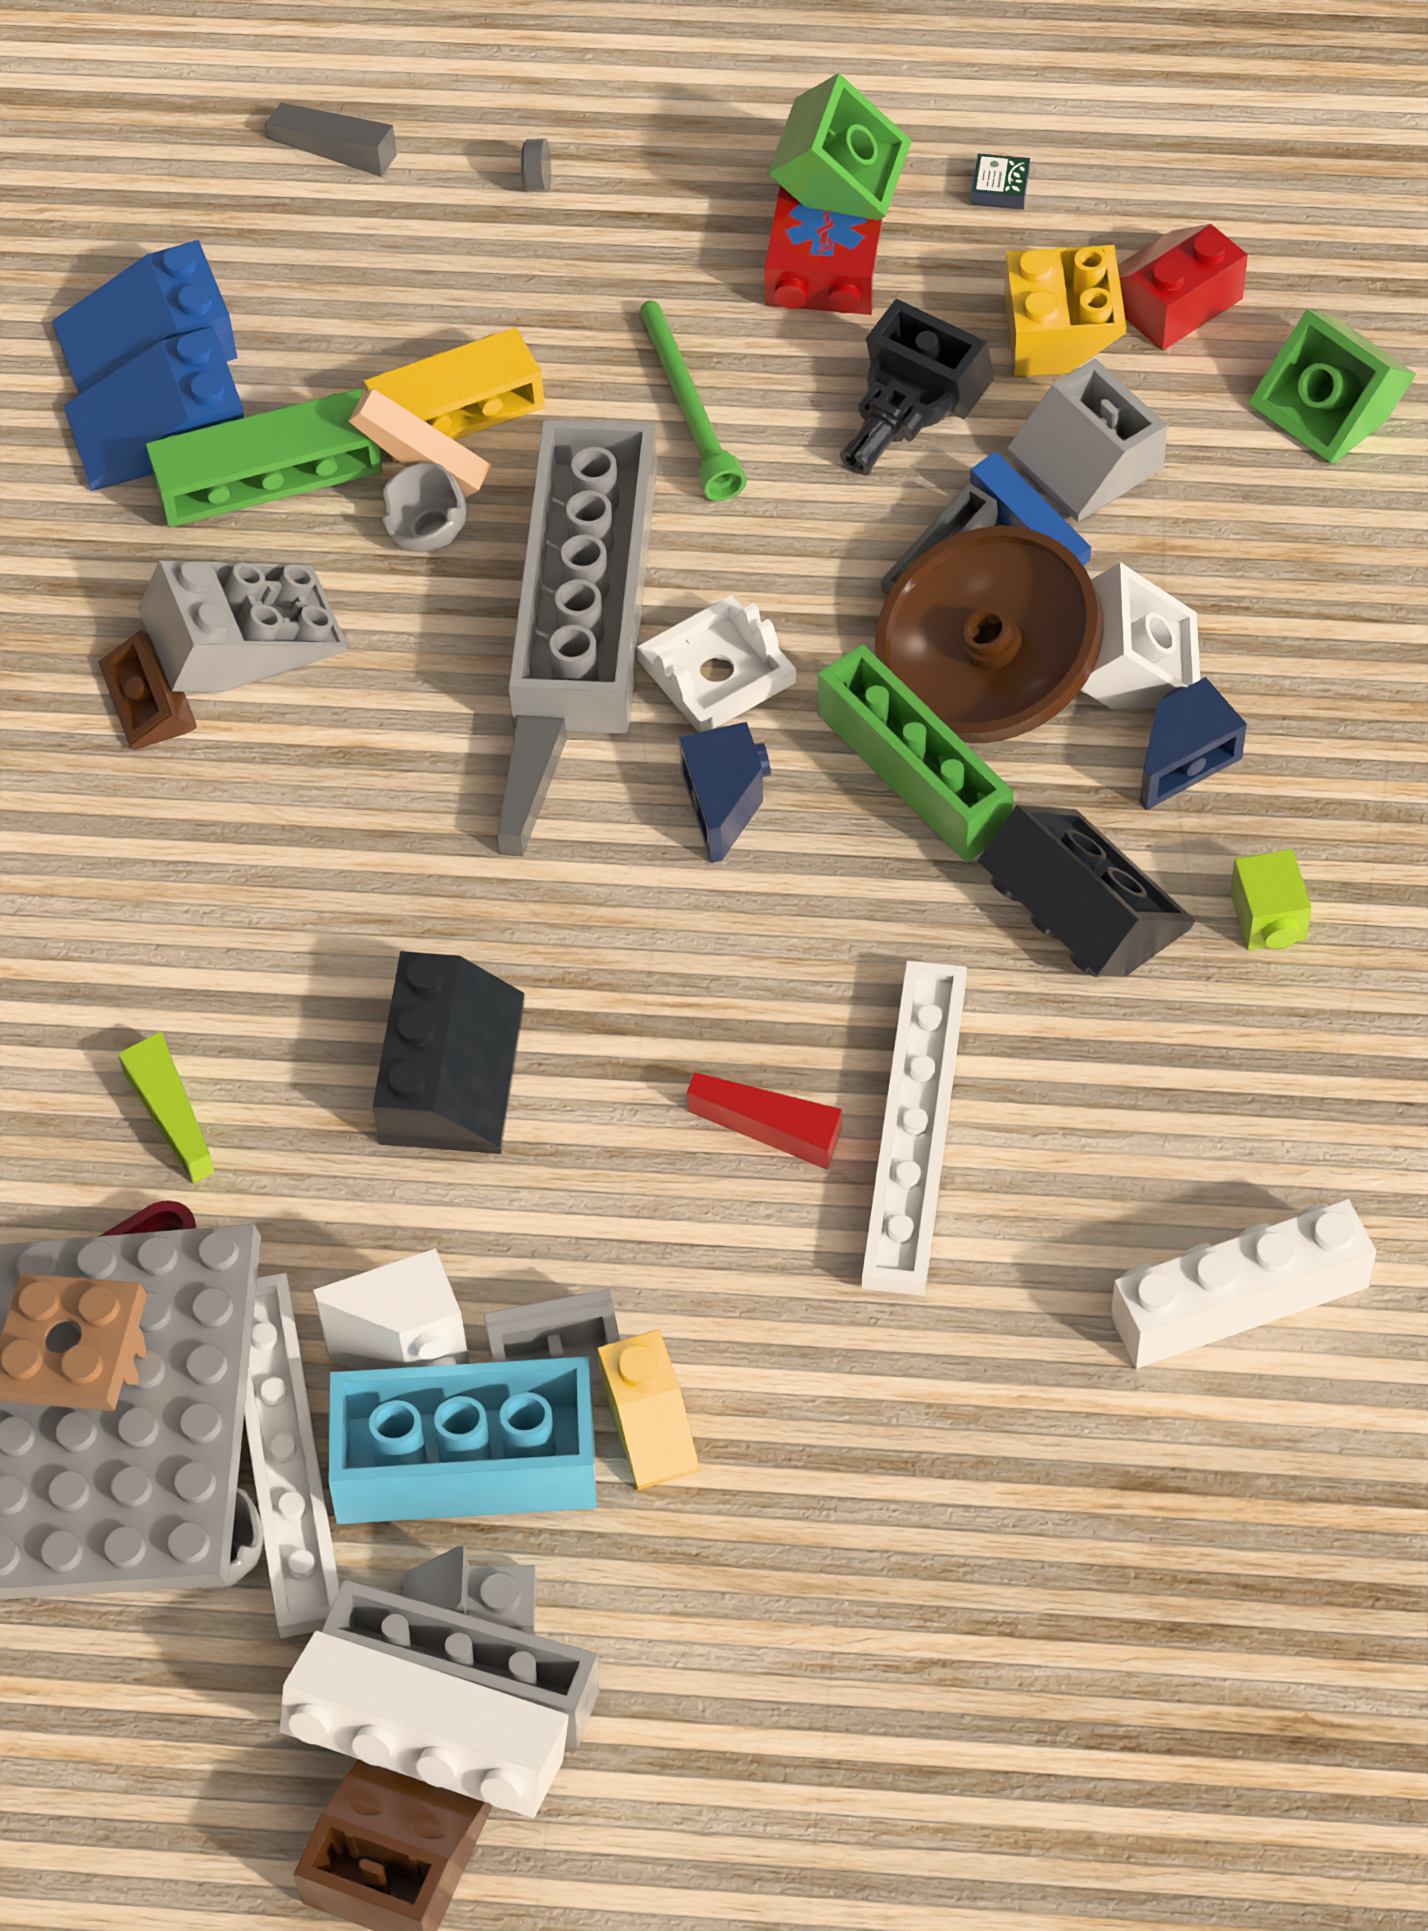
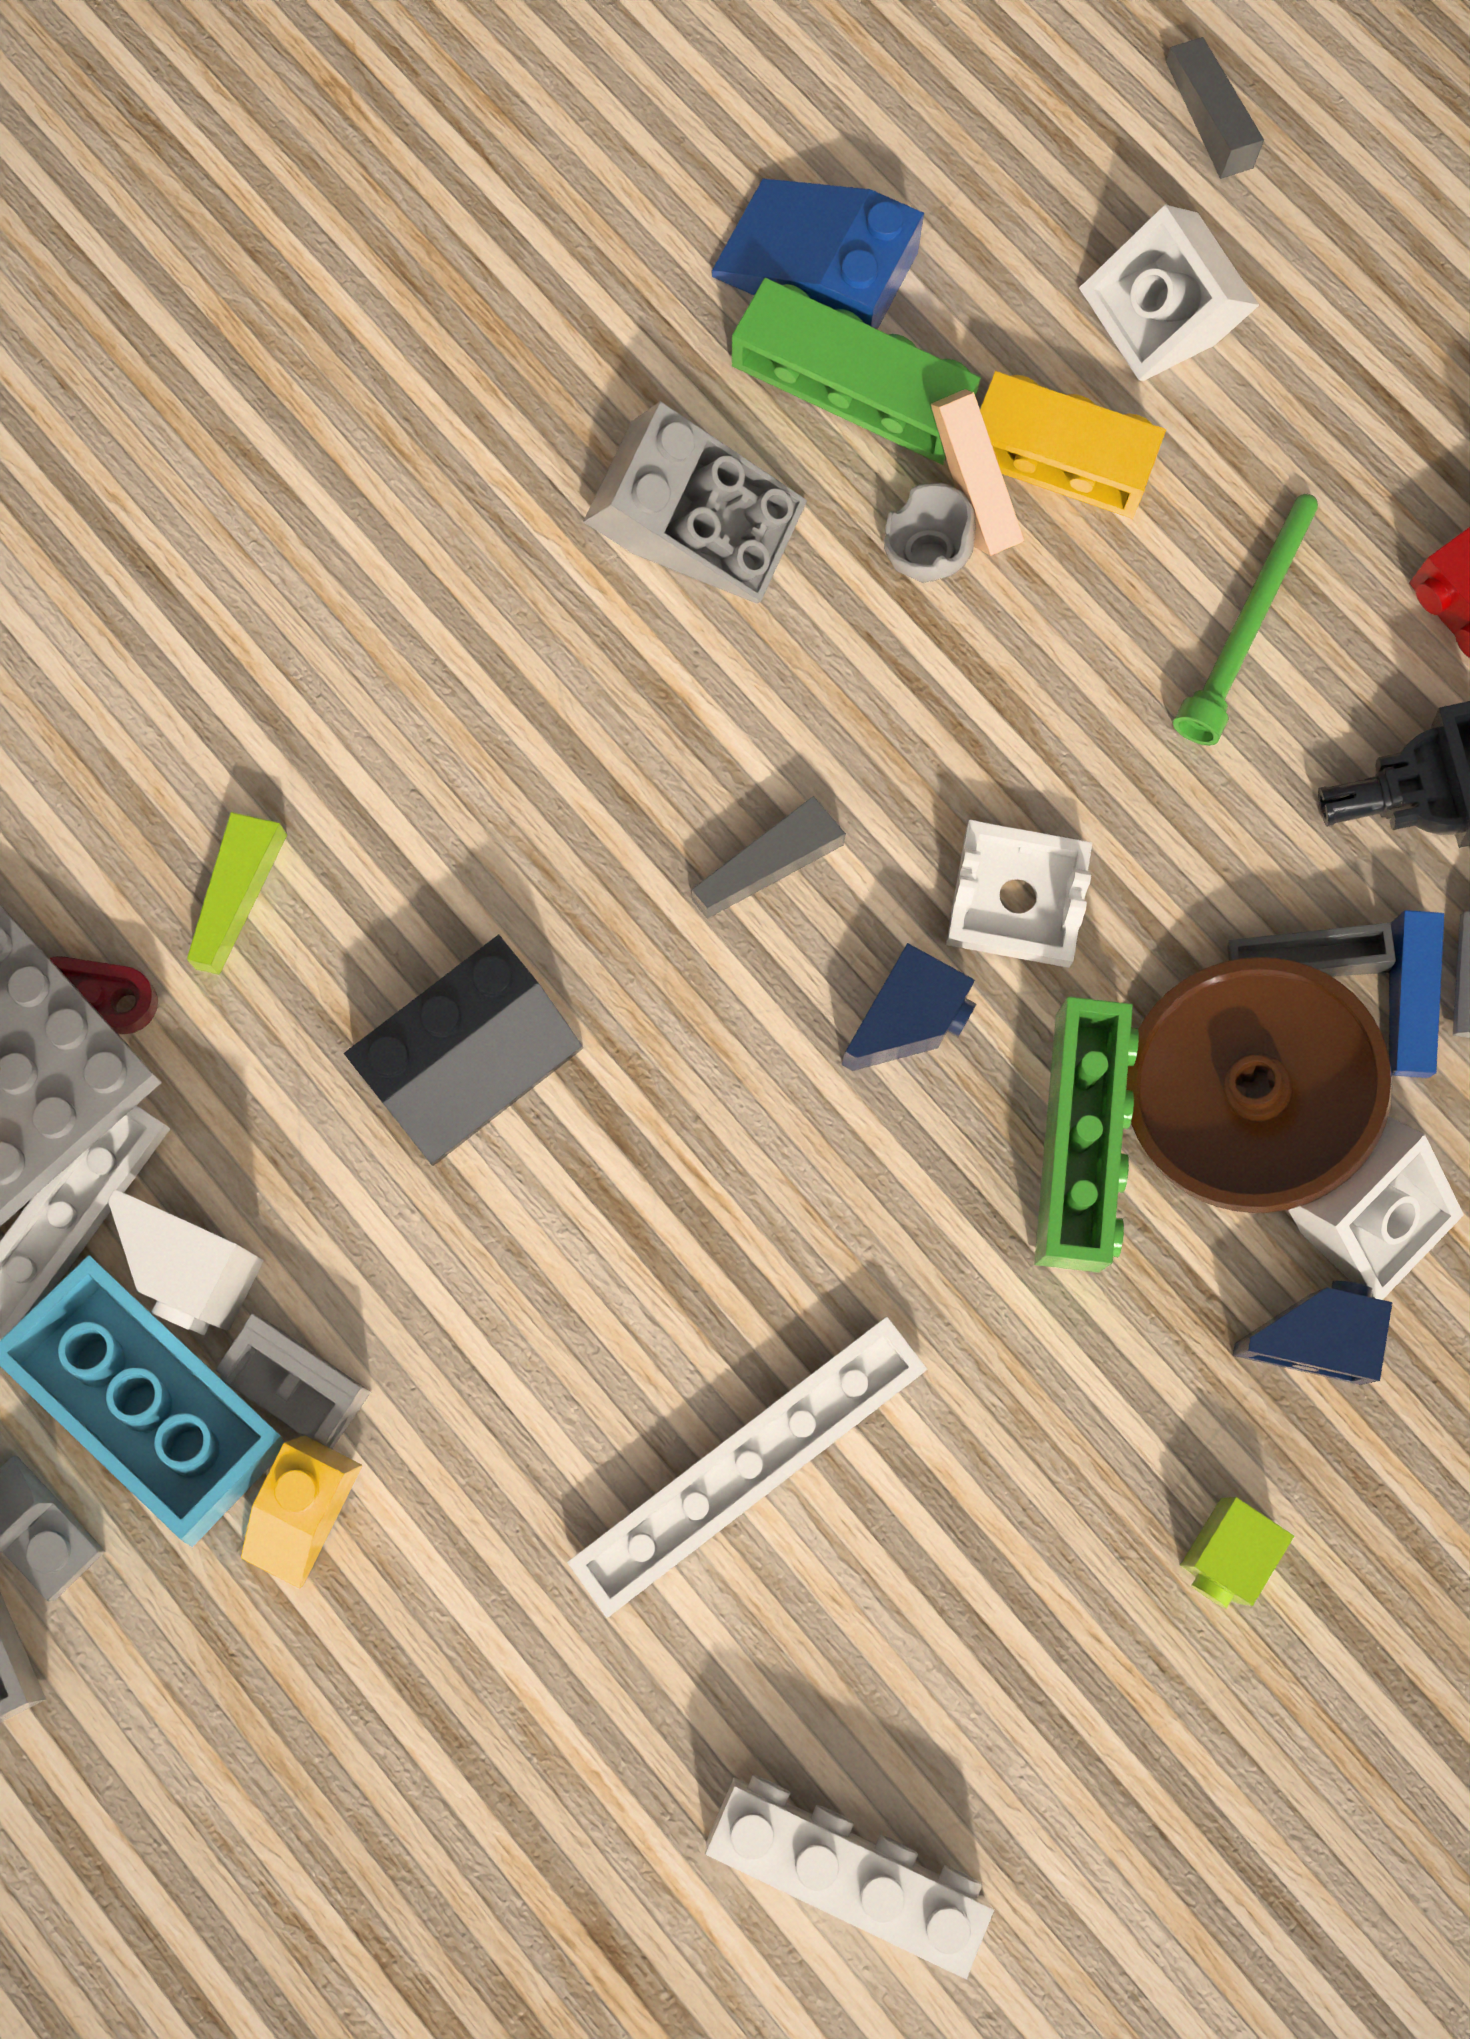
camera: 40 degrees right, 20 degrees up
(142, 694) = (557, 514): reddish brown slope -> none
(146, 303) = (901, 147): blue slope -> none
(424, 260) = (1168, 293): none -> white slope
(536, 165) = (1348, 281): dark grey tile -> none
(585, 574) = (991, 714): light grey brick -> none
(775, 1119) = (656, 1362): red piece -> none
(1082, 890) = (1096, 1390): black slope -> none

